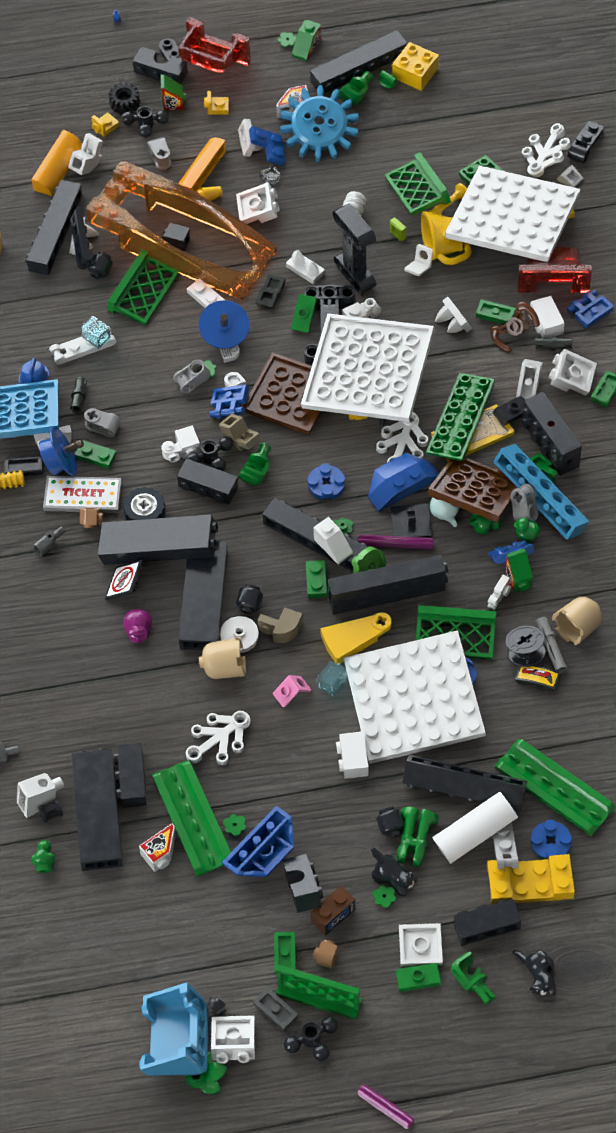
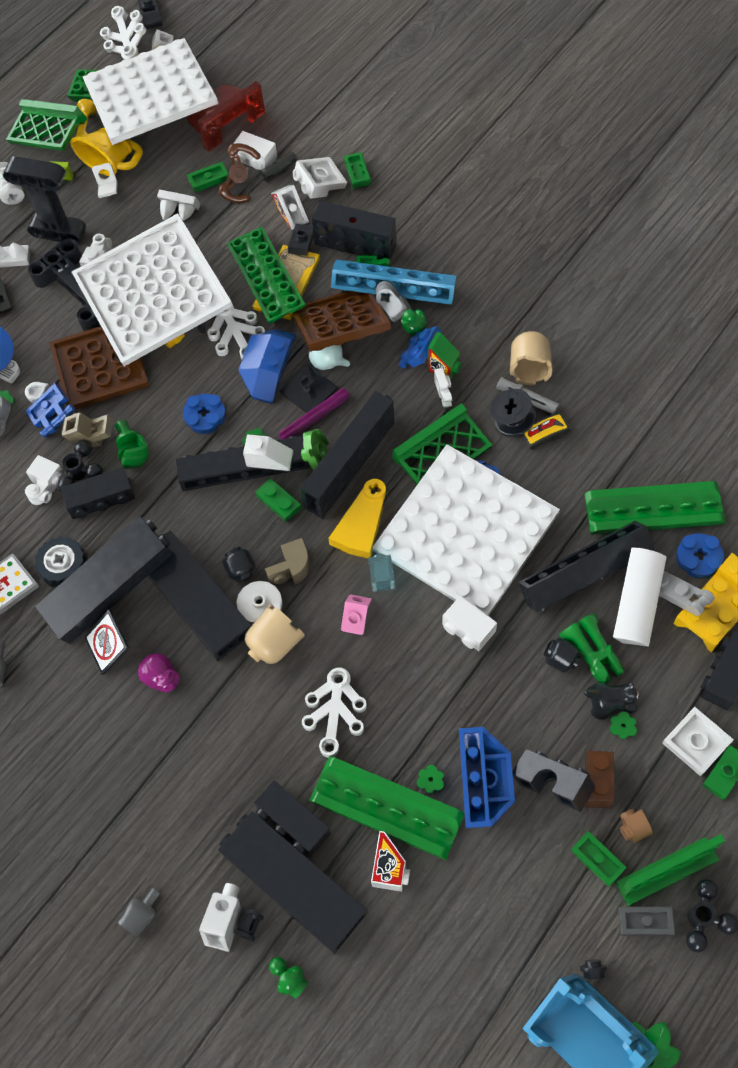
camera: 40 degrees left, 5 degrees up
(90, 516) = (17, 610): medium nougat plate -> none
(233, 1038) = (642, 988): white plate -> none
(304, 313) = (46, 290): green plate -> none
(482, 524) = (371, 344): green animal -> none
(593, 312) = (285, 124): blue plate -> none

